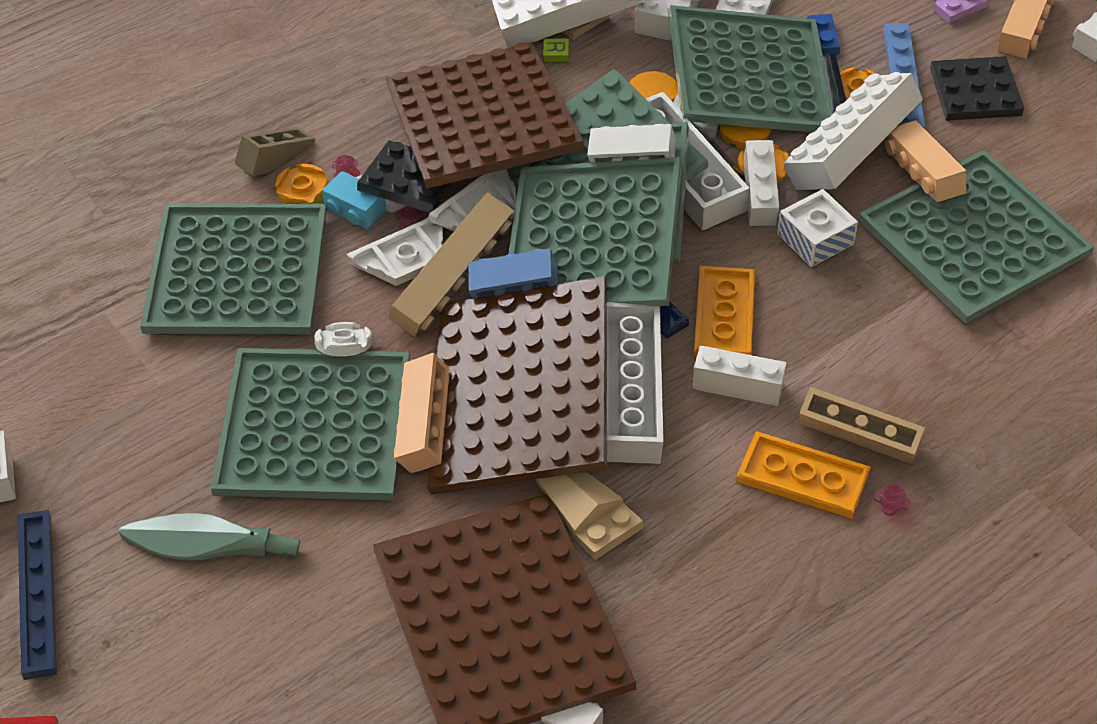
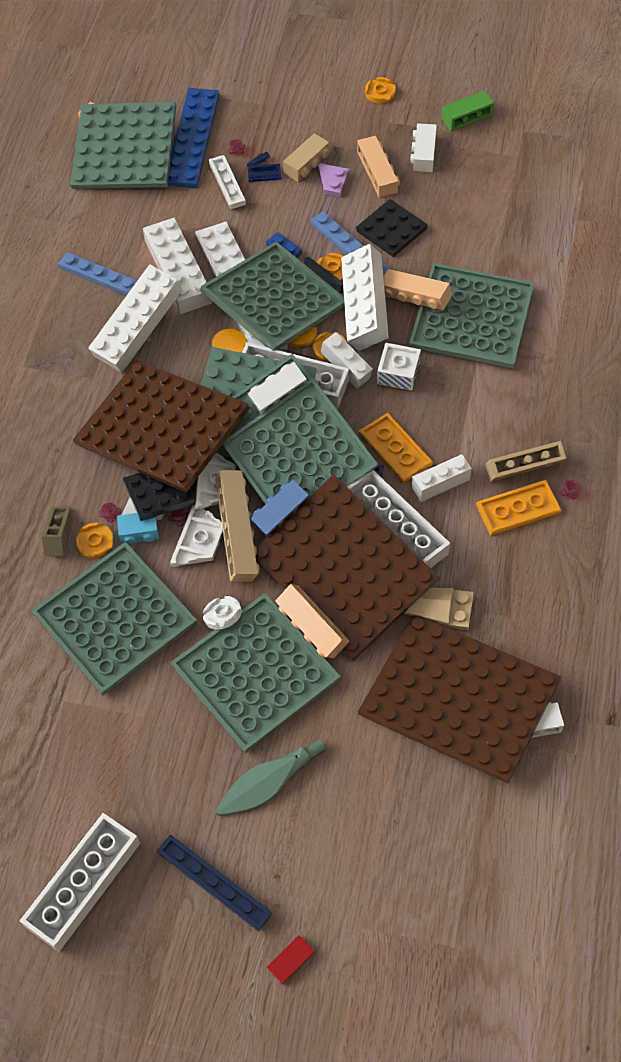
camera: 40 degrees left, 10 degrees up
(556, 50) = (150, 355): lime tile -> none

